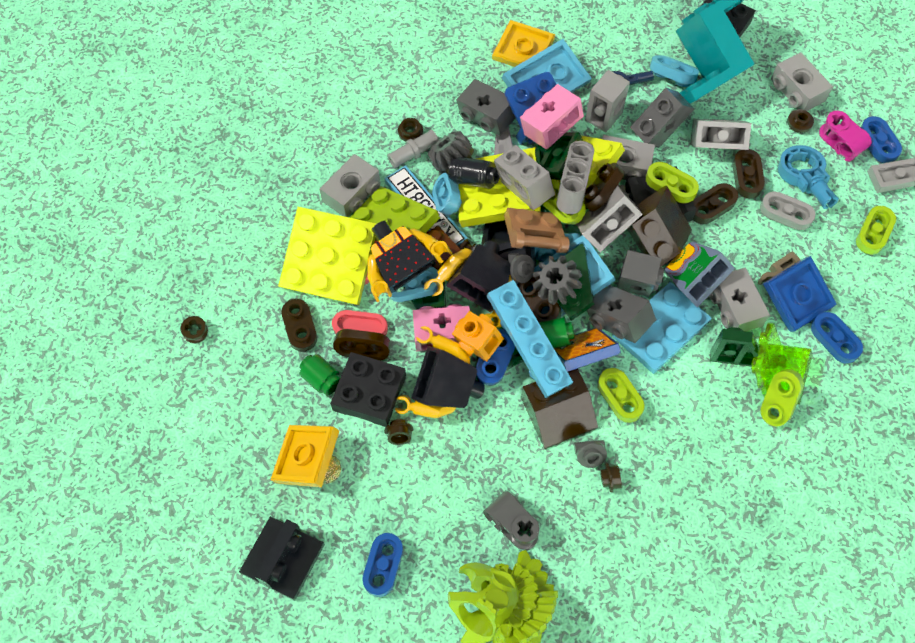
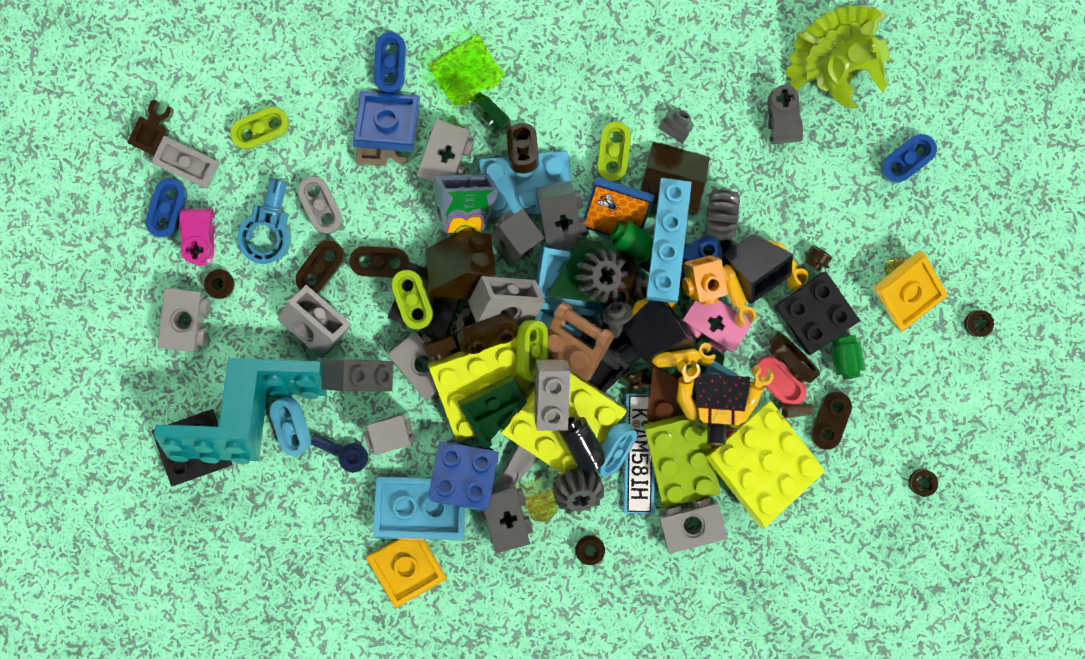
camera: 140 degrees left, 25 degrees up
(219, 475) = (974, 315): none -> dark brown bush
(282, 557) = (981, 223): black bracket -> none
(331, 311) = (797, 410): none -> dark tan piece
(412, 149) = (604, 526): light grey pin -> none
(468, 128) = (541, 506): none -> clear yellow plate
(501, 403) = (722, 214): none -> dark grey gear
(552, 116) = (455, 442): bright pink brick -> none
(575, 177) = (502, 365): light grey beam -> none
(611, 477) = (678, 92): dark brown plate -> none
(628, 162) = (439, 347): none -> dark brown plate
(690, 339) = (522, 148): none -> dark brown plate
(781, 399) = (490, 45): lime plate -> none

